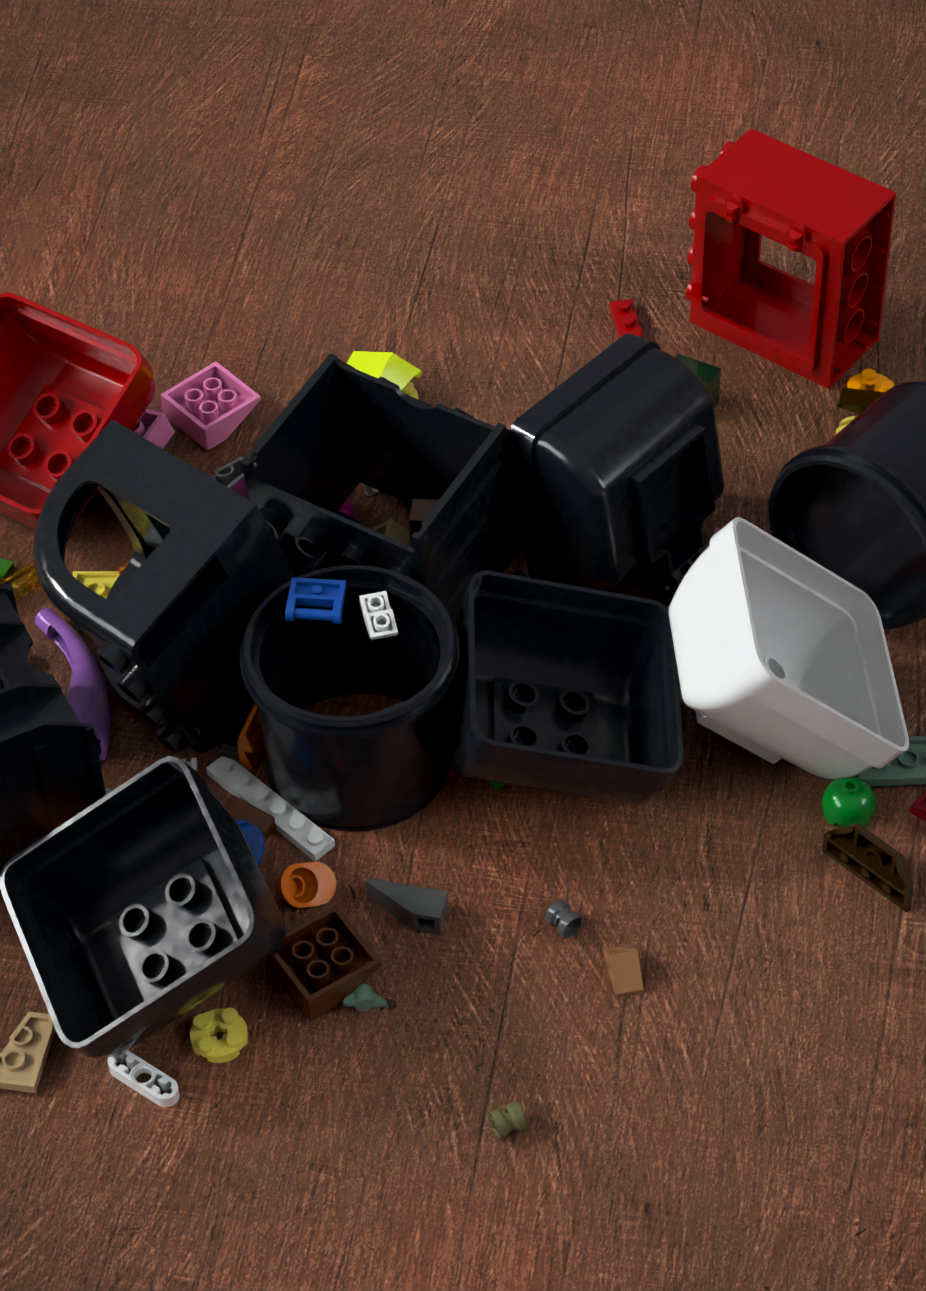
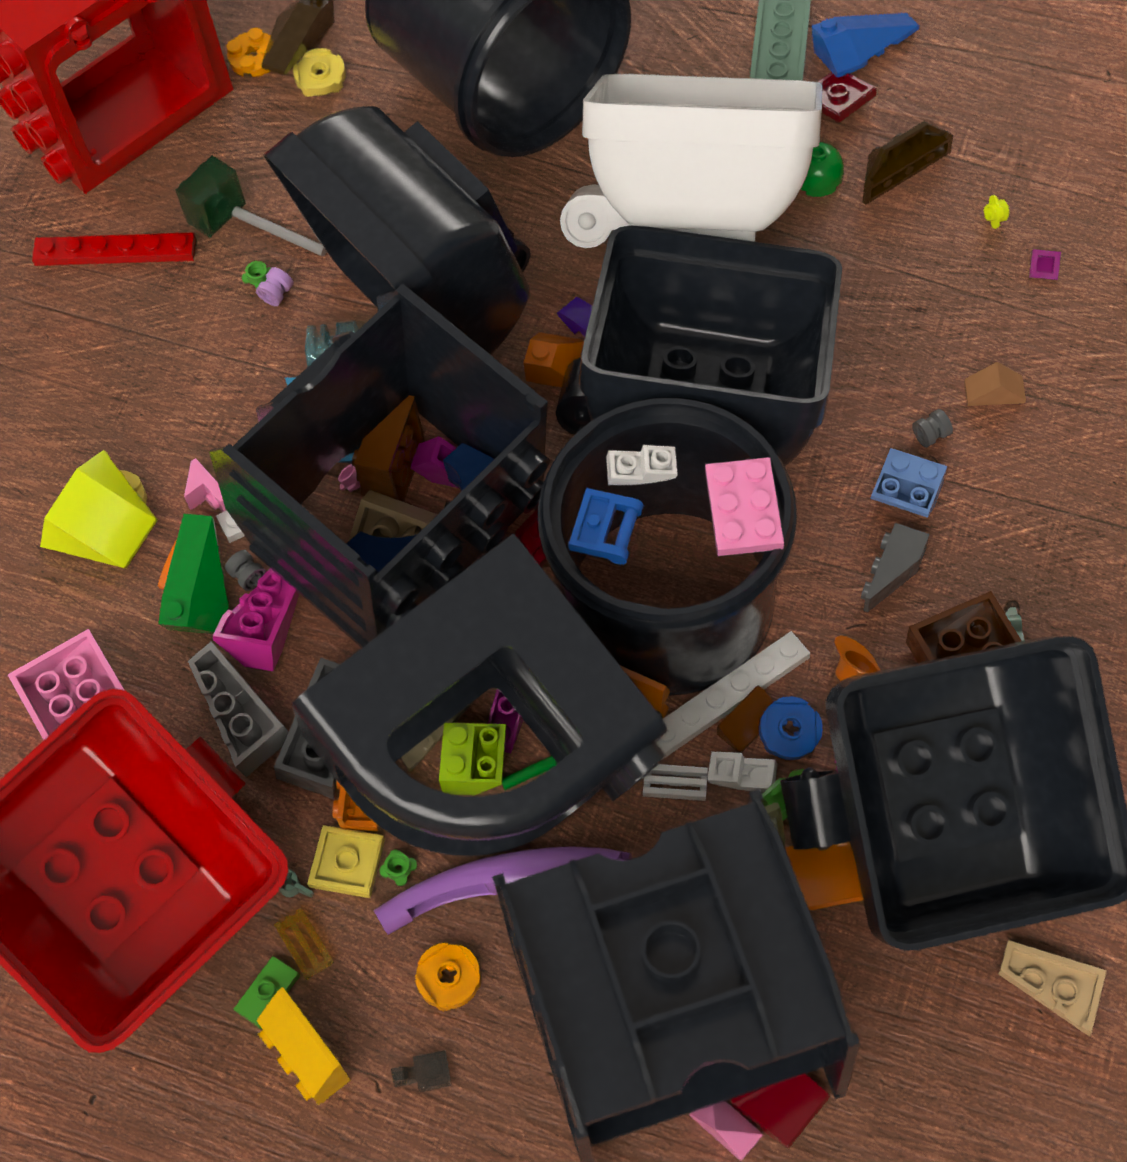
camera: 75 degrees left, 15 degrees up
(73, 560) = (293, 886): none -> sand green piece
(351, 687) = (744, 506): none -> bright pink plate
(492, 903) = (909, 482): none -> medium blue slope
(783, 997) = (1044, 264): none -> magenta slope
(833, 948) = (996, 211): none -> neon yellow plate

